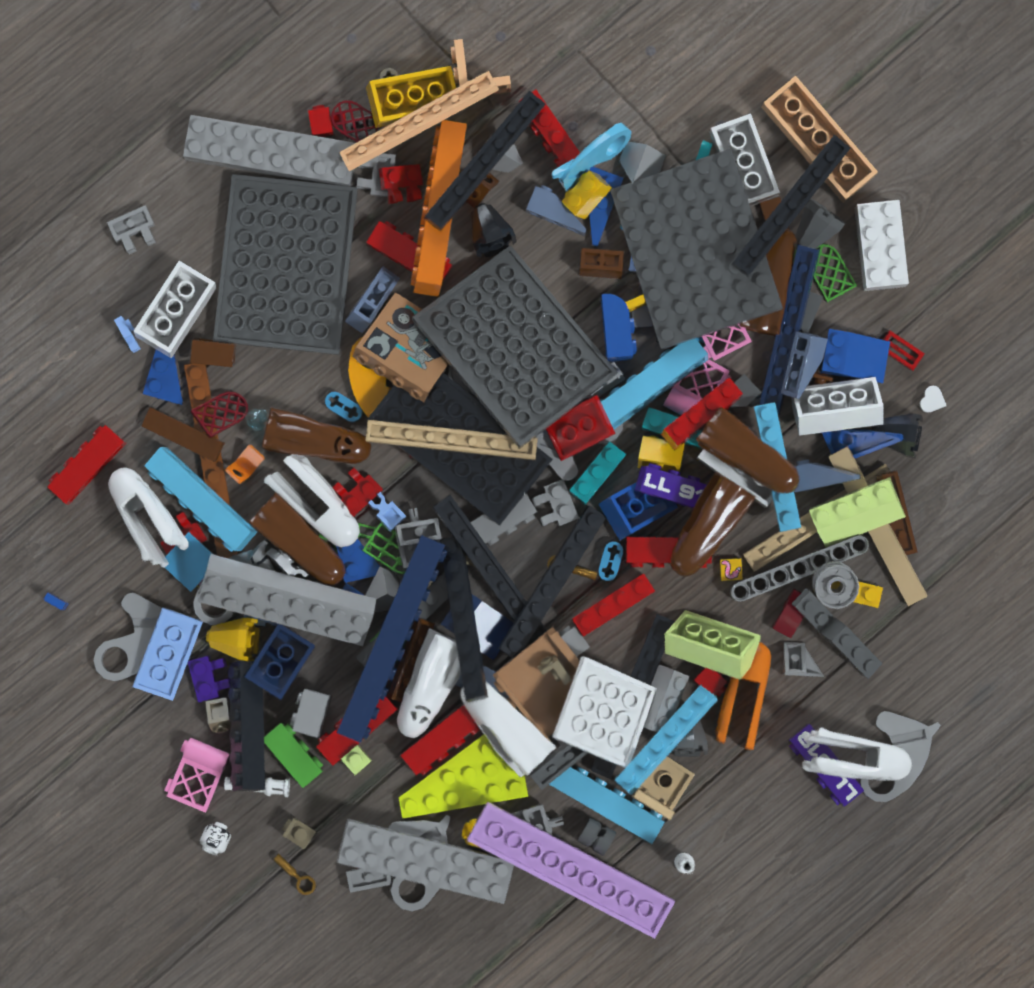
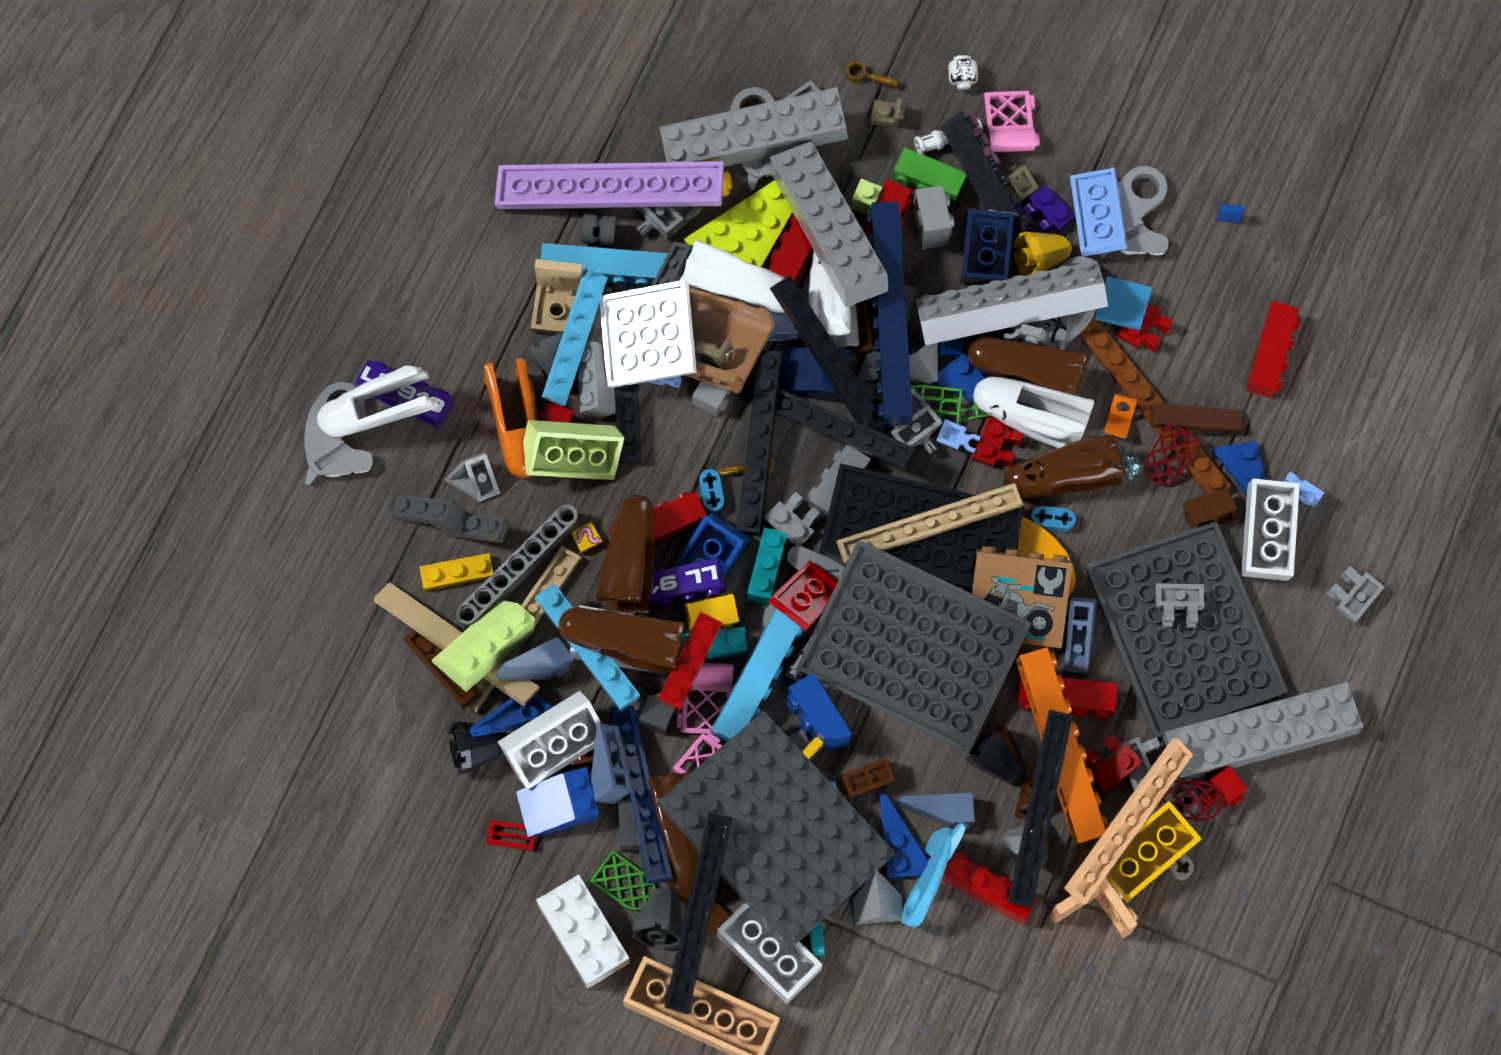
camera: 150 degrees right, 15 degrees down
(130, 496) = (1189, 319): white piece -> none
(200, 499) = (1146, 363): medium azure brick -> none
(278, 288) = (1181, 597): none -> light grey plate
(406, 740) = (829, 224): none -> light grey brick
(586, 194) = (917, 836): yellow brick -> none
(613, 605) = (688, 448): red brick -> none
(682, 858) = (501, 238): white pin -> none
(790, 617) = (507, 508): dark red slope -> none
(844, 594) = (470, 549): light grey wheel -> none
(932, 400) = (456, 799): white tile -> none

